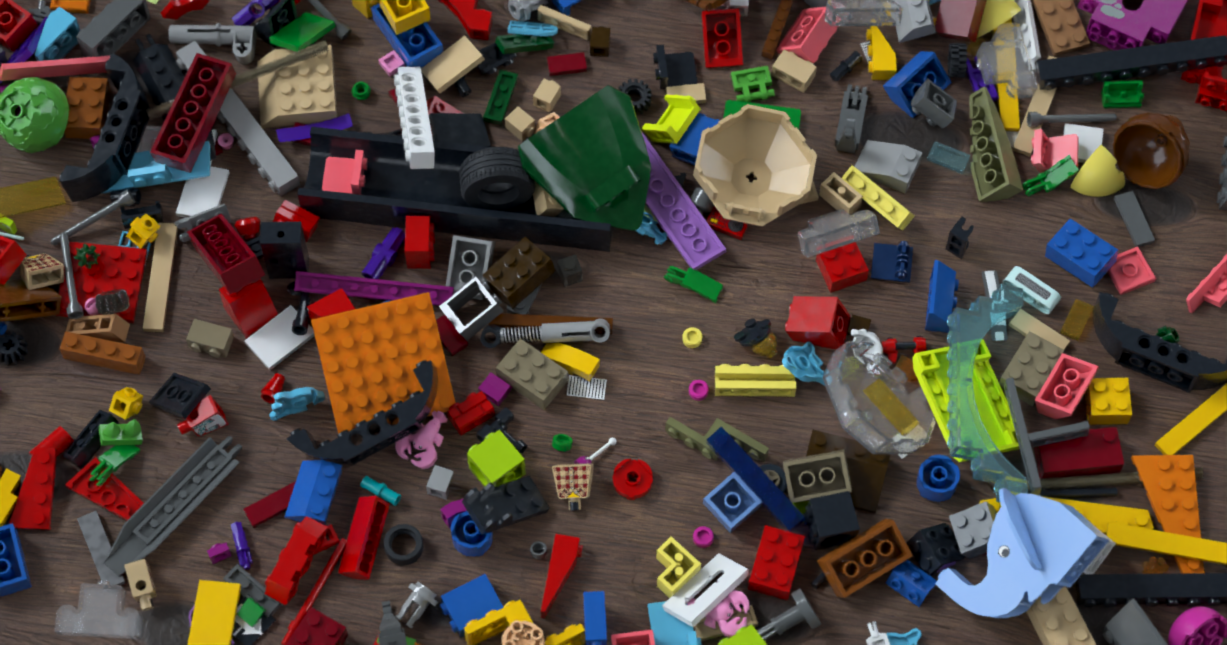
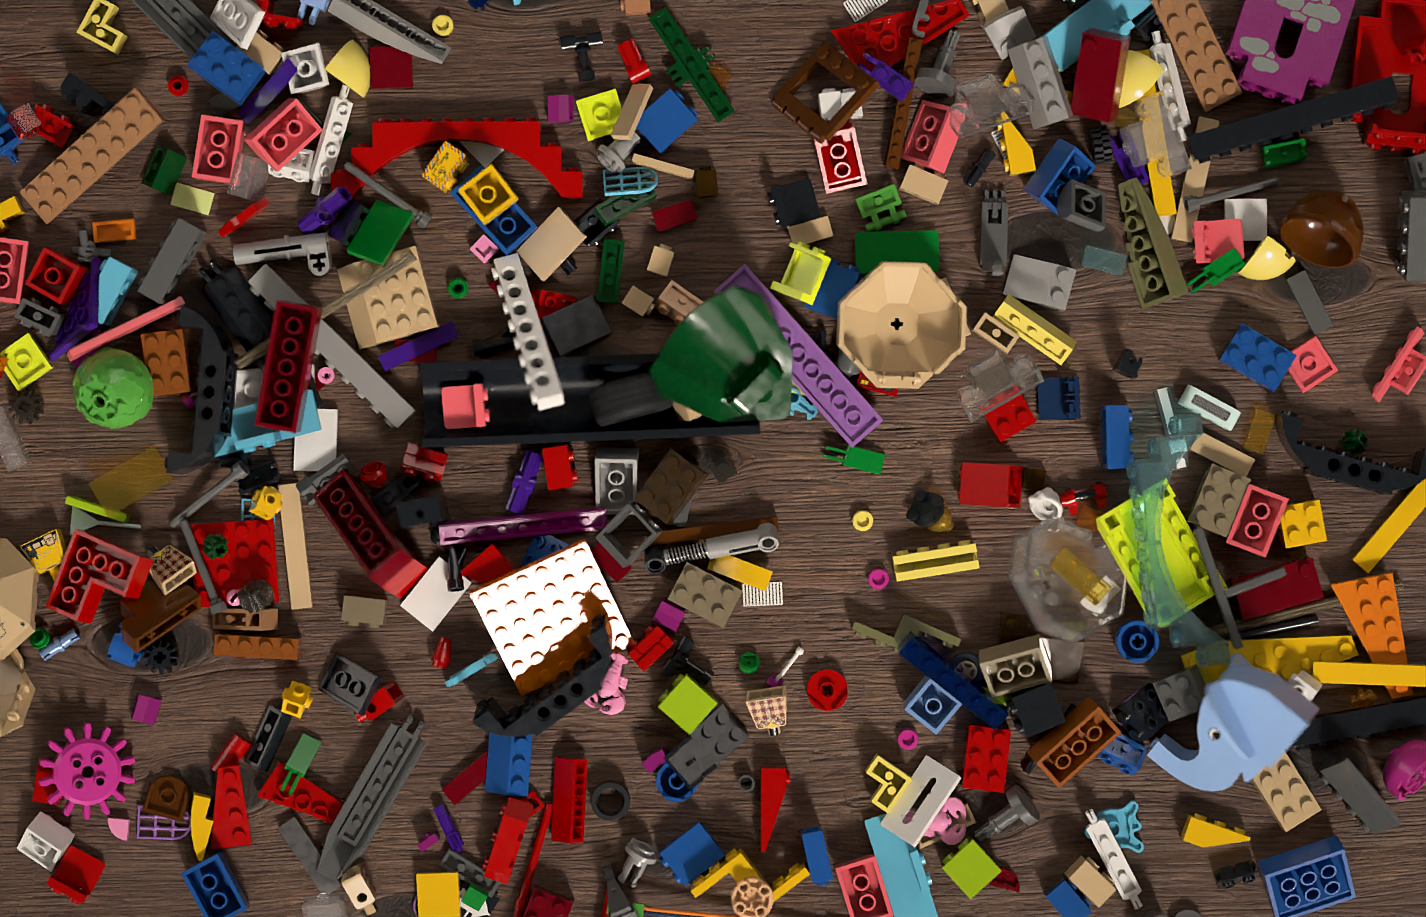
camera: 15 degrees left, 25 degrees up
(121, 433) = (299, 733): bright green tile -> none
(380, 490) = (575, 746): teal pin -> none
(439, 482) = (634, 729): light grey panel -> none
(640, 88) = (746, 236): black tyre -> none
(804, 363) = (982, 536): medium azure tile -> none

